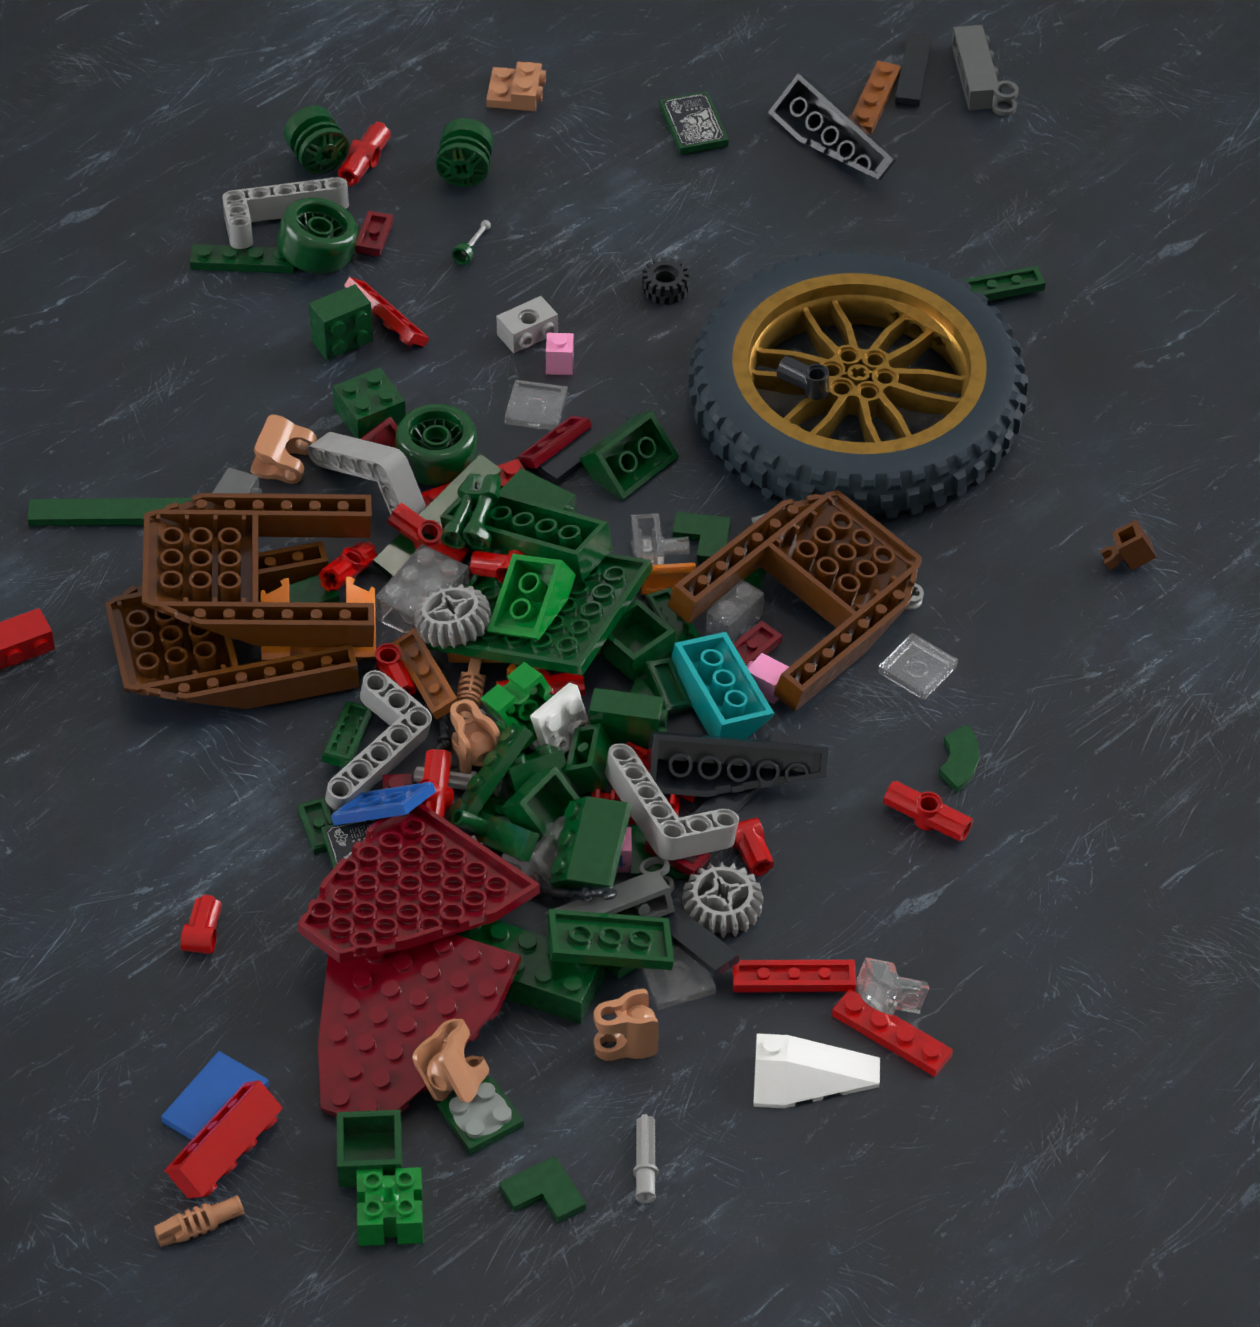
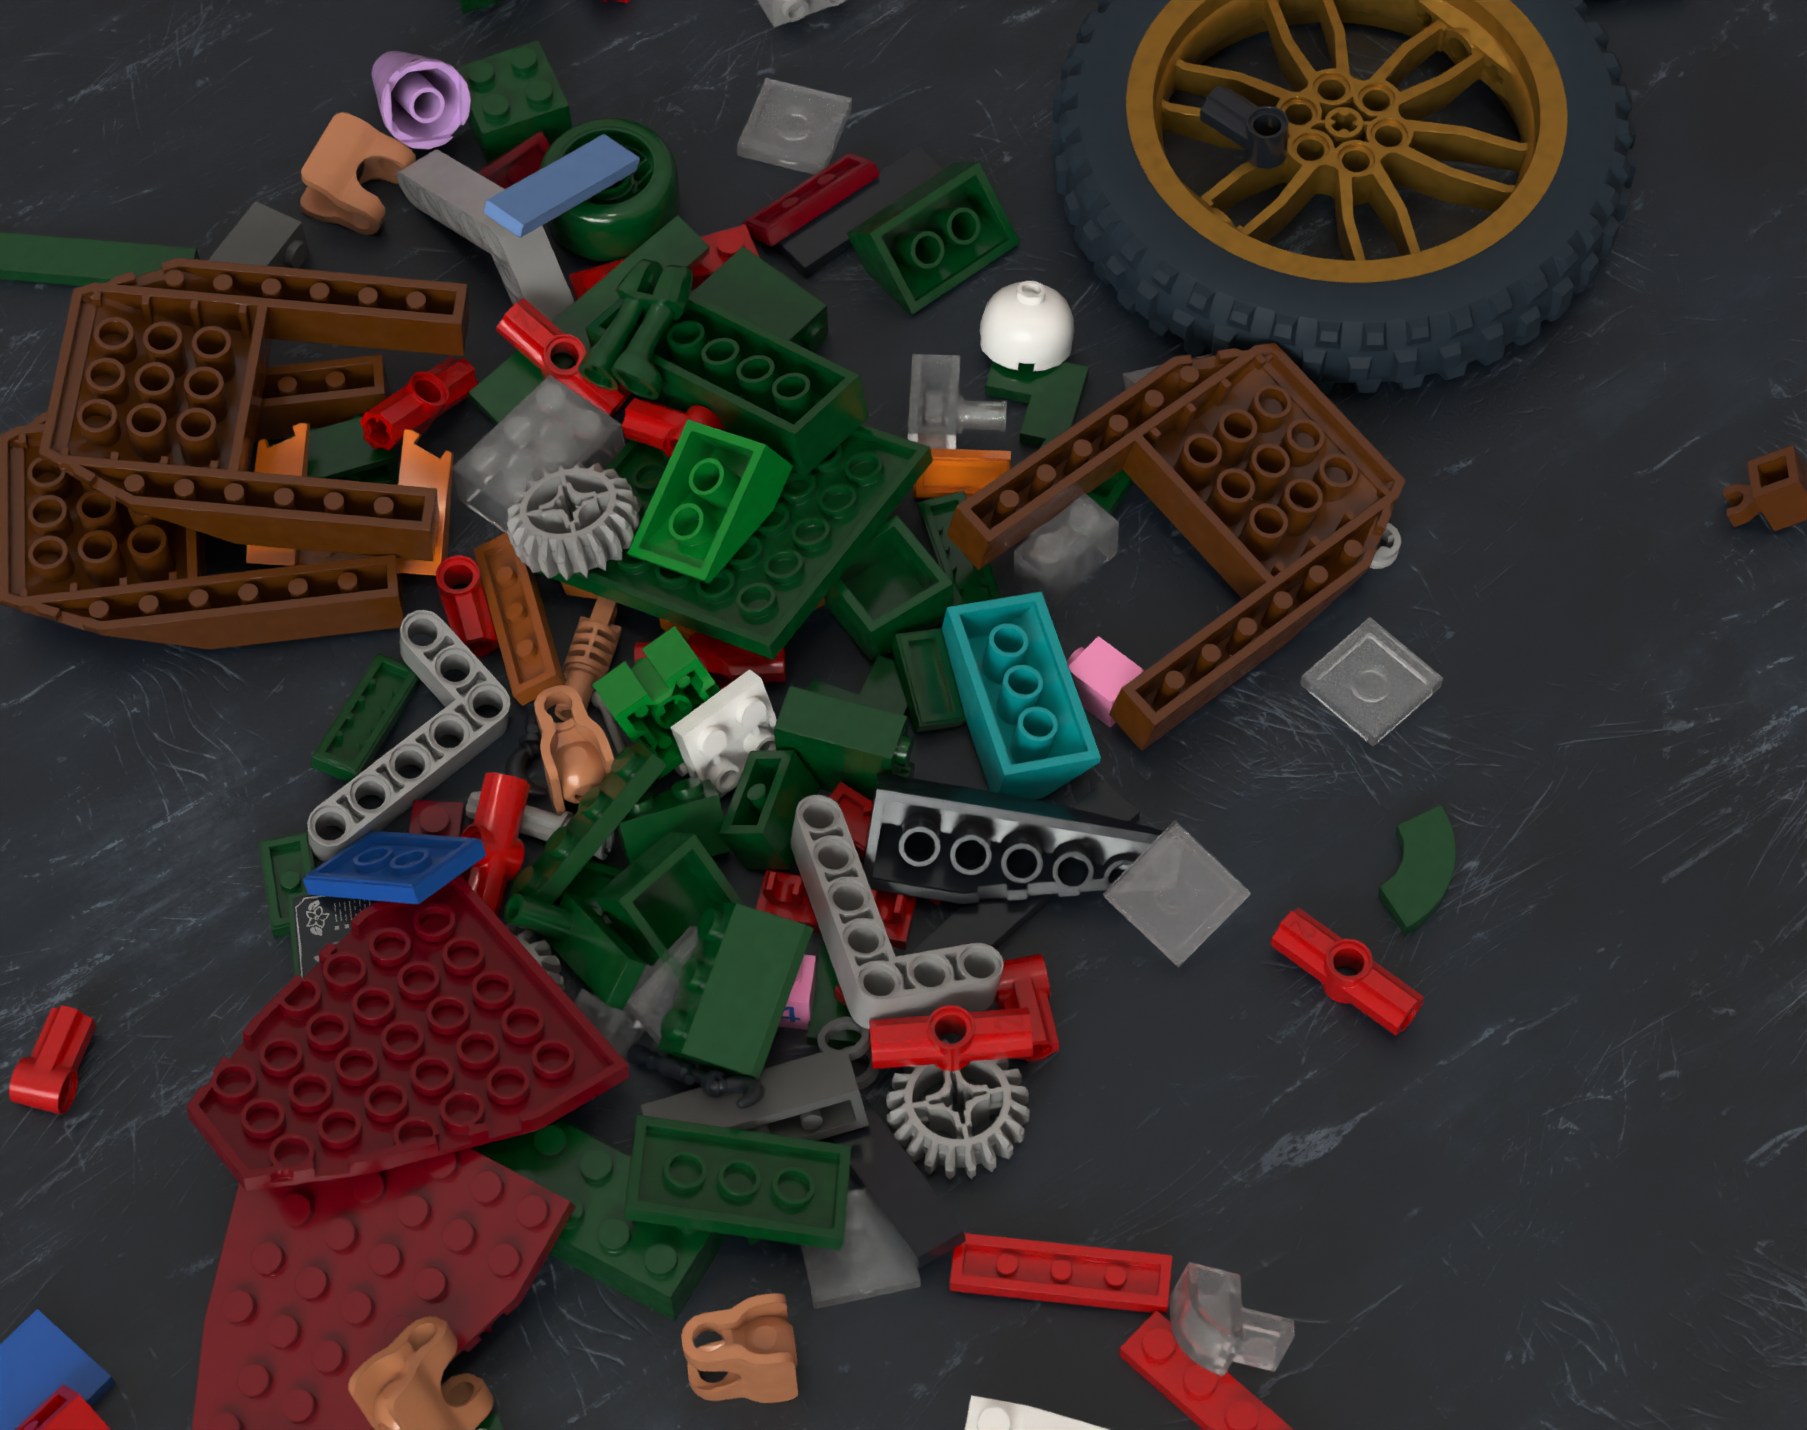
camera: 10 degrees right, 10 degrees up
(315, 403) = (420, 98): none -> lavender cone
(415, 438) = (561, 185): none -> medium blue tile
(559, 353) = (846, 38): bright pink brick -> none
(692, 496) = (1027, 326): none -> white cylinder
(715, 858) = (984, 1035): none -> red piece
(756, 641) = (1094, 613): dark red plate -> none
(827, 778) = (1176, 893): none -> clear tile

